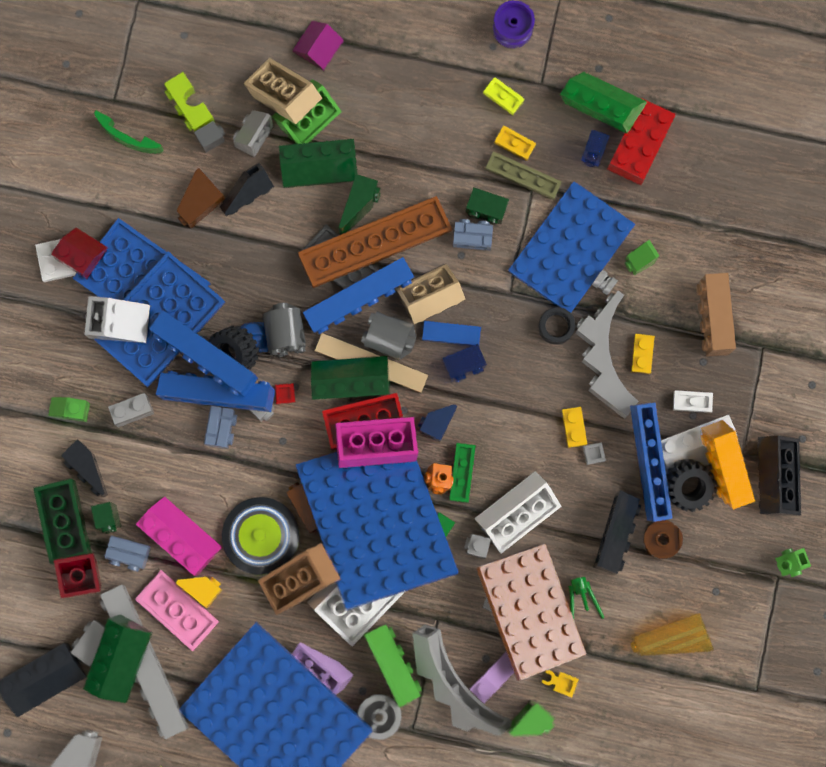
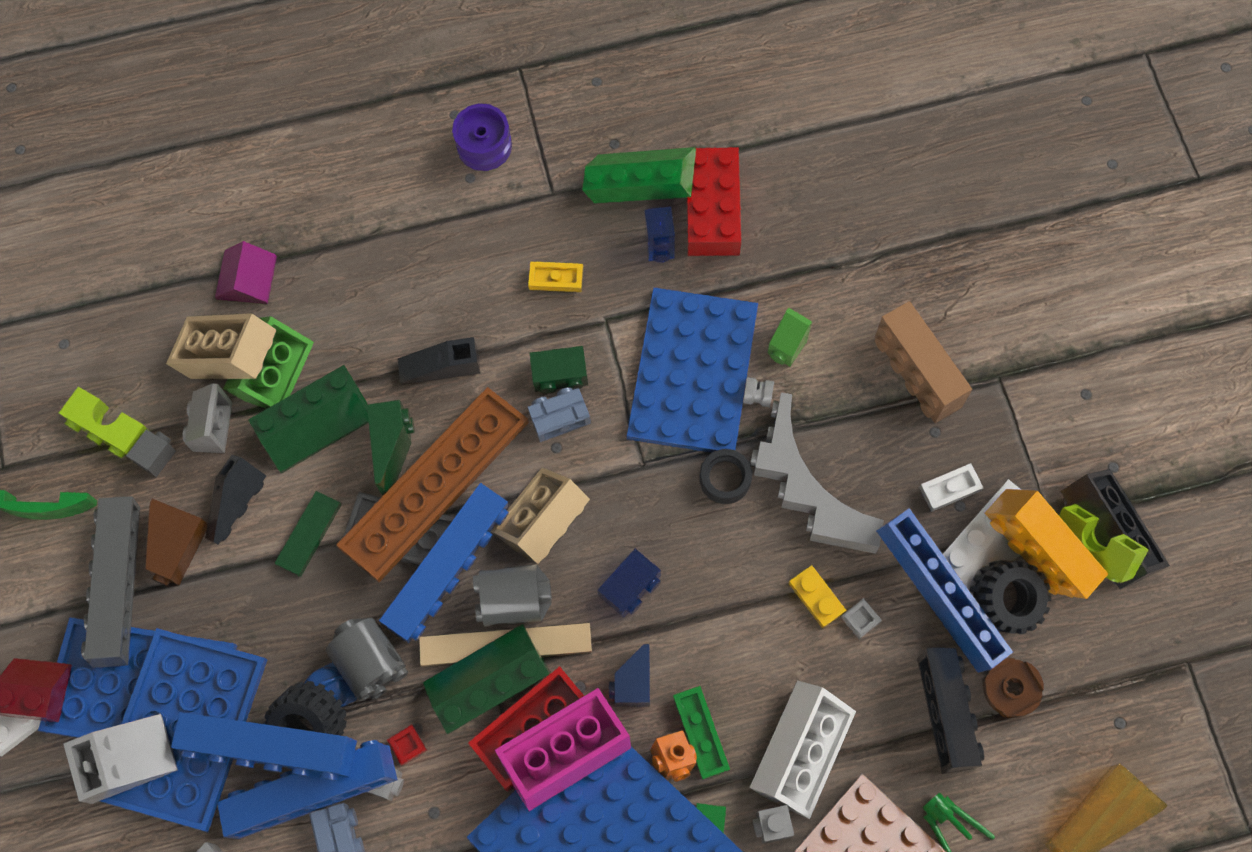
camera: 20 degrees left, 10 degrees down
(153, 208) = (111, 582): none -> dark grey brick
(283, 235) = (308, 533): none -> dark green tile
(414, 165) = (440, 361): none -> black slope
(451, 333) = (592, 553): blue tile -> none
(503, 96) = (512, 227): neon yellow plate -> none
(523, 175) = (586, 310): olive plate -> none
(642, 354) = (854, 459): yellow plate -> none
(766, 495) = (1119, 558): none -> lime arch
(792, 562) = (1198, 631): bright green brick -> none

